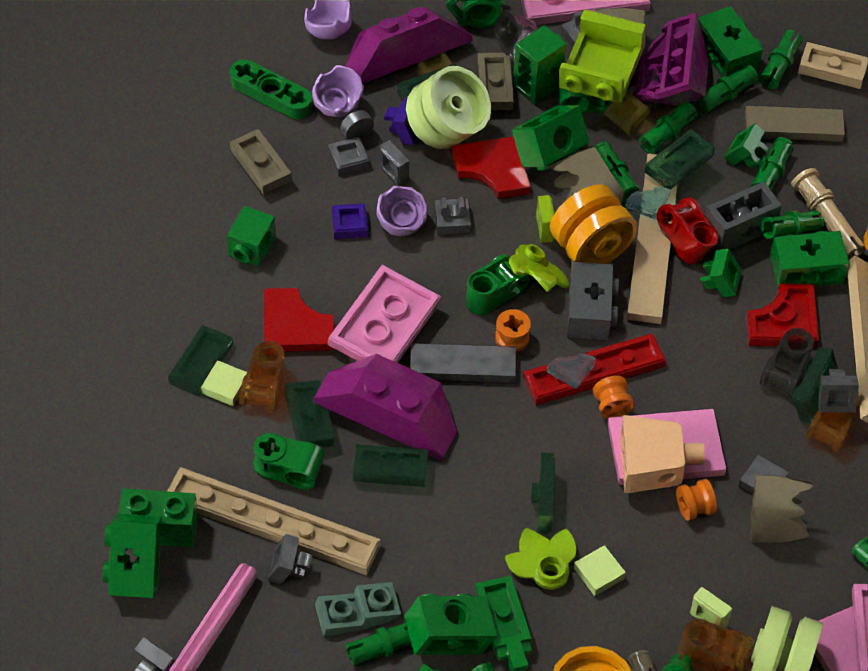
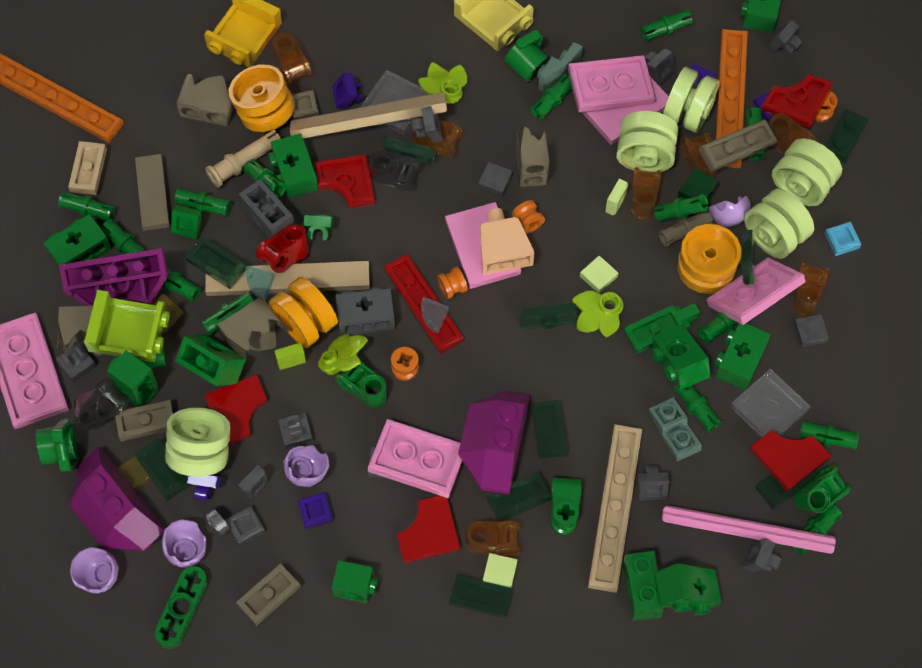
camera: 100 degrees left, 10 degrees up
(464, 362) = (440, 396): flat silver tile -> none

